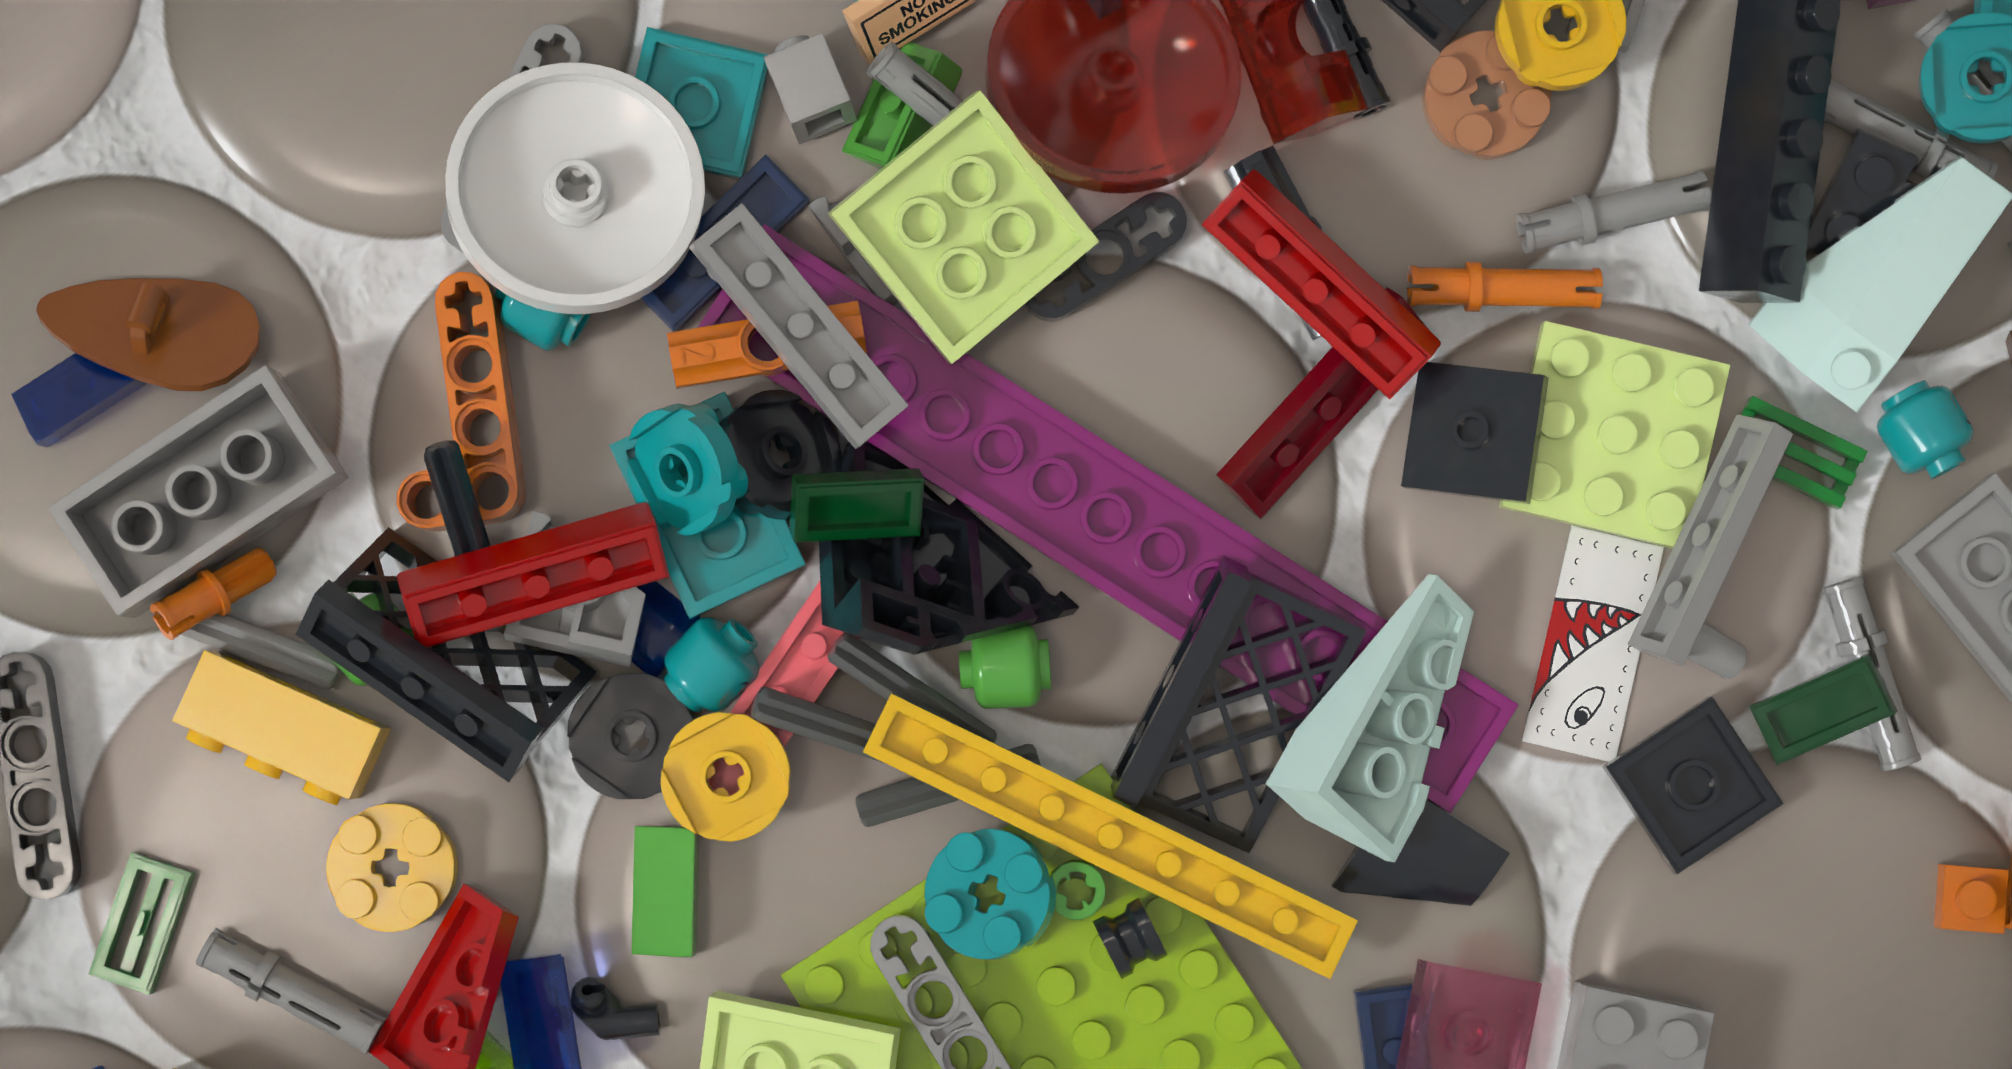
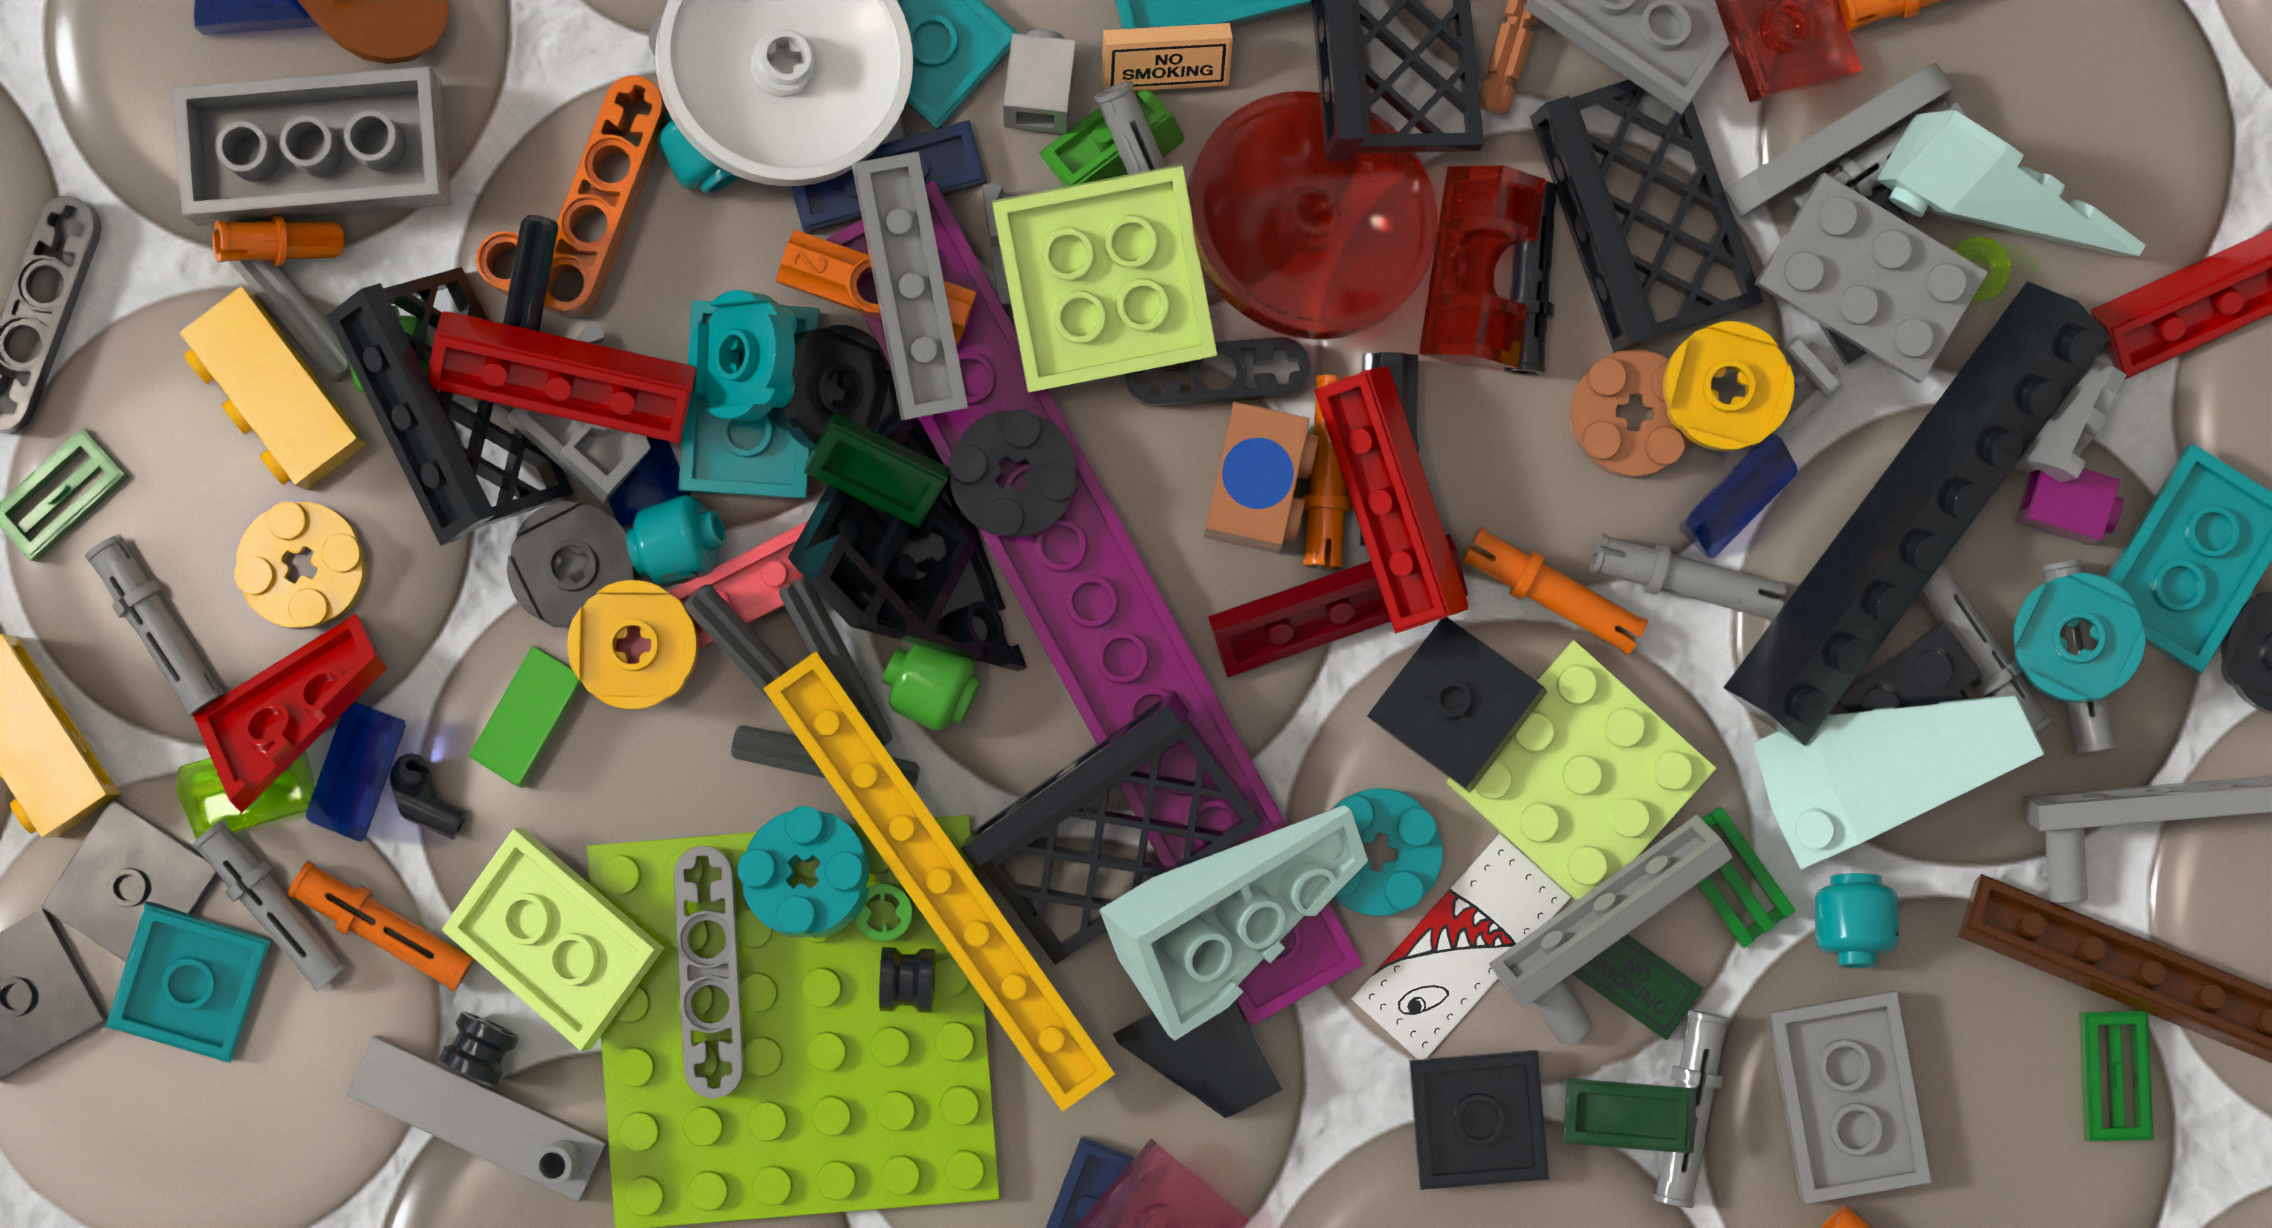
camera: 30 degrees right, 0 degrees up
(966, 407) = (1005, 510): none -> black plate
(1195, 328) = (1258, 478): none -> nougat brick
(1259, 309) = (1326, 498): none -> orange pin
(1512, 584) = (1417, 847): none -> teal plate
(1618, 117) = (1739, 496): none -> clear blue slope
(1771, 590) = (1641, 985): none -> dark green tile

